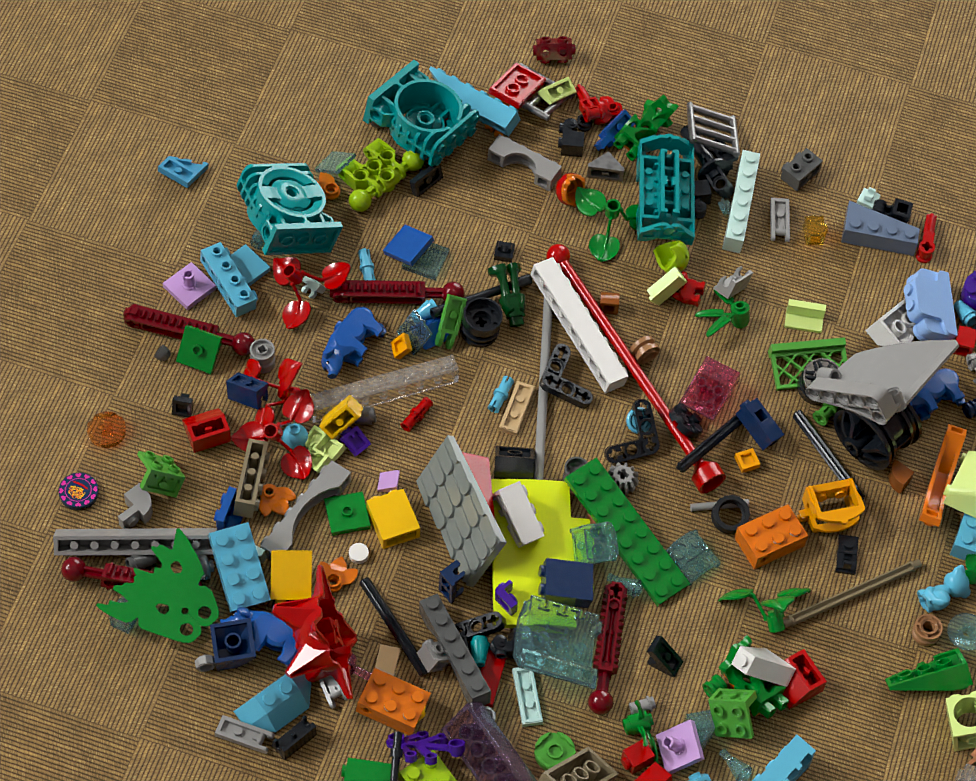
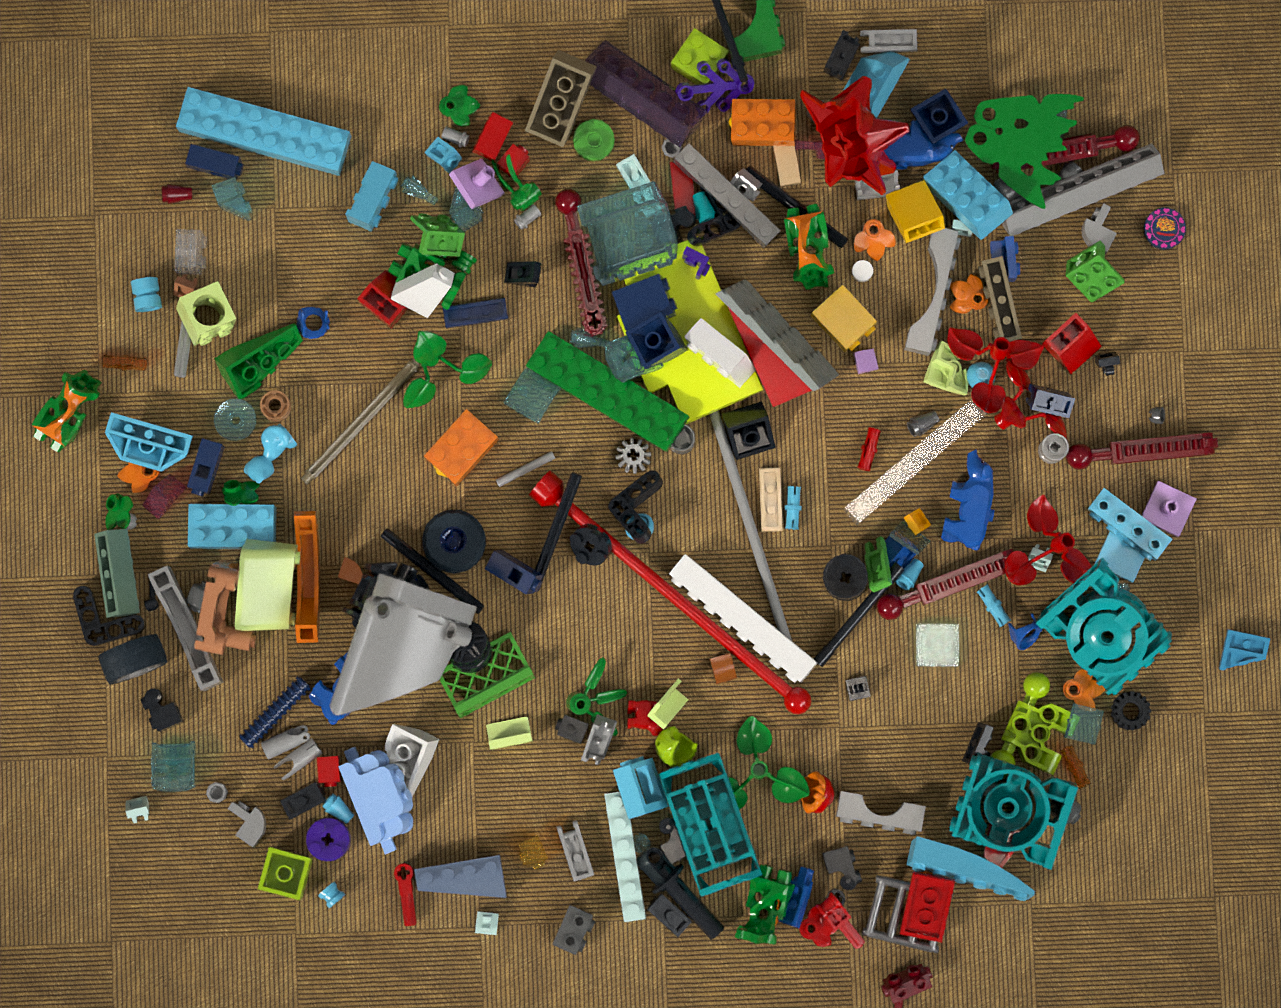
camera: 160 degrees right, 25 degrees up
(106, 429) = (1170, 308): clear orange tile -> none
(199, 349) = (1120, 429): green plate -> none
(205, 663) = (959, 94): light grey tile -> none
(293, 152) = (1142, 704): none -> black tyre
(341, 417) = (941, 403): yellow brick -> none
(347, 513) = (892, 310): green plate -> none
(354, 233) = (1017, 636): none -> blue piece
(354, 440) = (919, 392): dark purple bracket -> none
(356, 139) = (1075, 766): none -> clear orange pin
(396, 594) = (811, 267): none -> green hips
(408, 245) = (961, 648): blue tile -> none
(448, 581) = (757, 263): dark blue hinge -> none
(512, 304) = (823, 618): dark green piece -> none
(555, 378) = (743, 547): black beam -> none
(557, 91) = (881, 922): yellowish green slope -> none
(569, 542) = (656, 341): none -> dark blue slope
(606, 168) = (788, 842): flat silver slope -> none
(645, 349) = (663, 617): medium nougat wheel -> none
(710, 388) = (579, 596): clear pink slope -> none
(711, 642) = (475, 313): none -> dark blue tile
(721, 222) = (631, 790): none -> medium azure window
(732, 129) = (708, 920): flat silver bar -> none
(738, 501) = (502, 443): black tyre -> none
(747, 460) = (513, 530): light orange plate -> none
(754, 298) = (571, 729): none -> black brick
(802, 464) = (454, 541): none -> black wheel
(837, 519) = (397, 485): light orange animal -> none
(846, 554) = (379, 463): black plate -> none
(874, 699) = (303, 313): none -> blue piece
(898, 210) = (450, 908): black brick -> none

